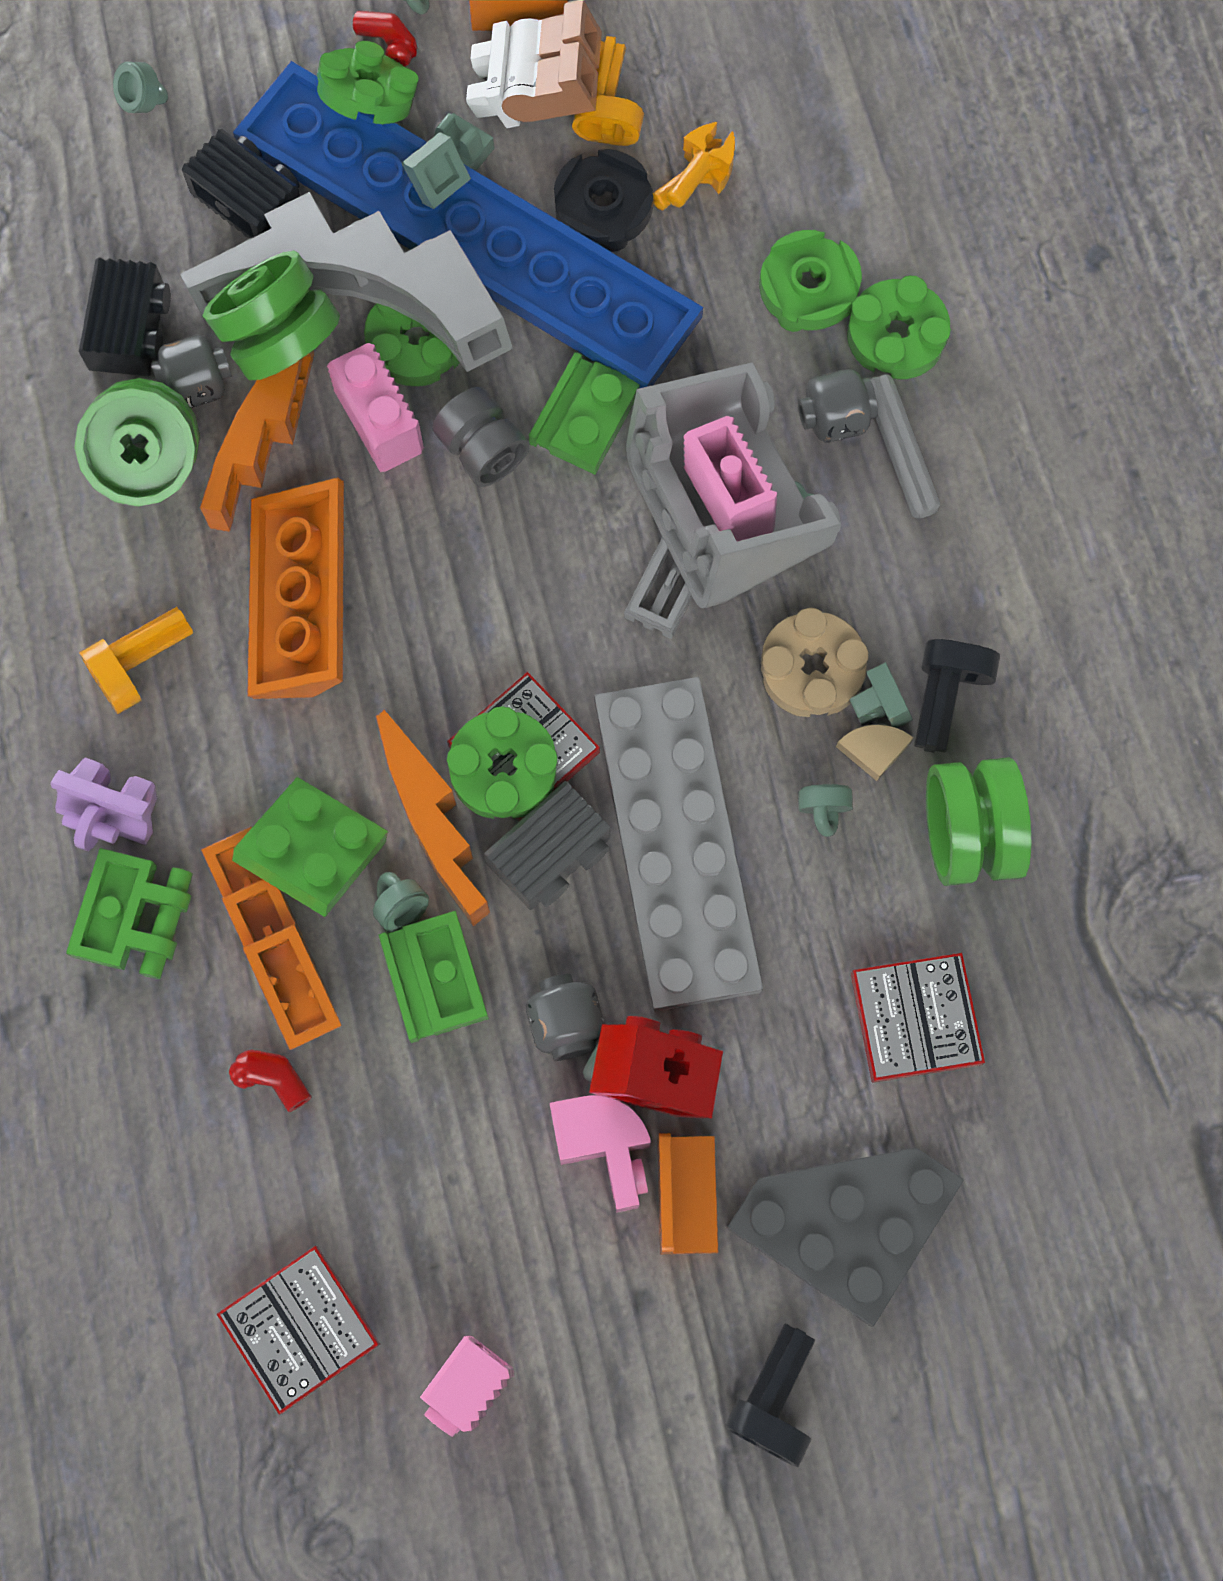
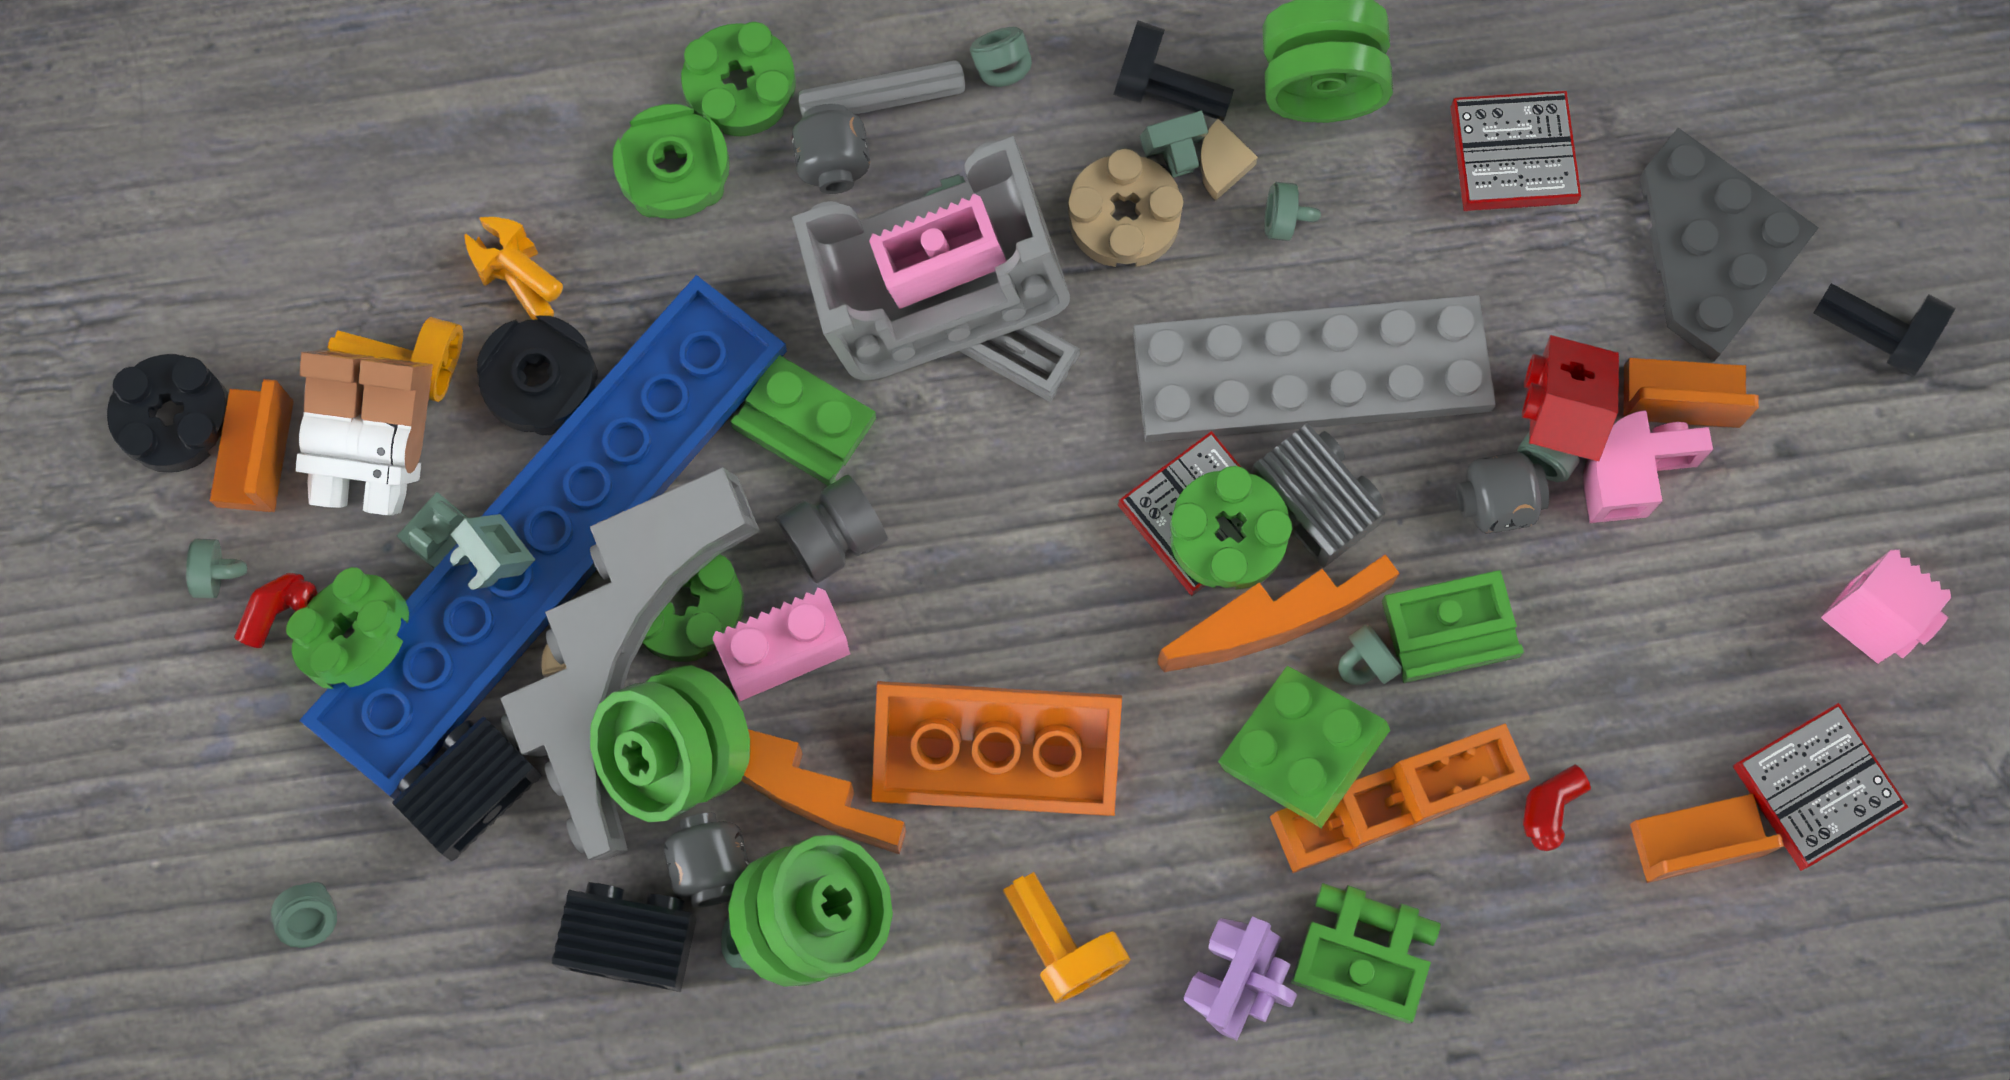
camera: 85 degrees left, 0 degrees up
(244, 1218) = (1702, 838): none -> orange panel
(955, 540) = (999, 50): none -> sand green tile

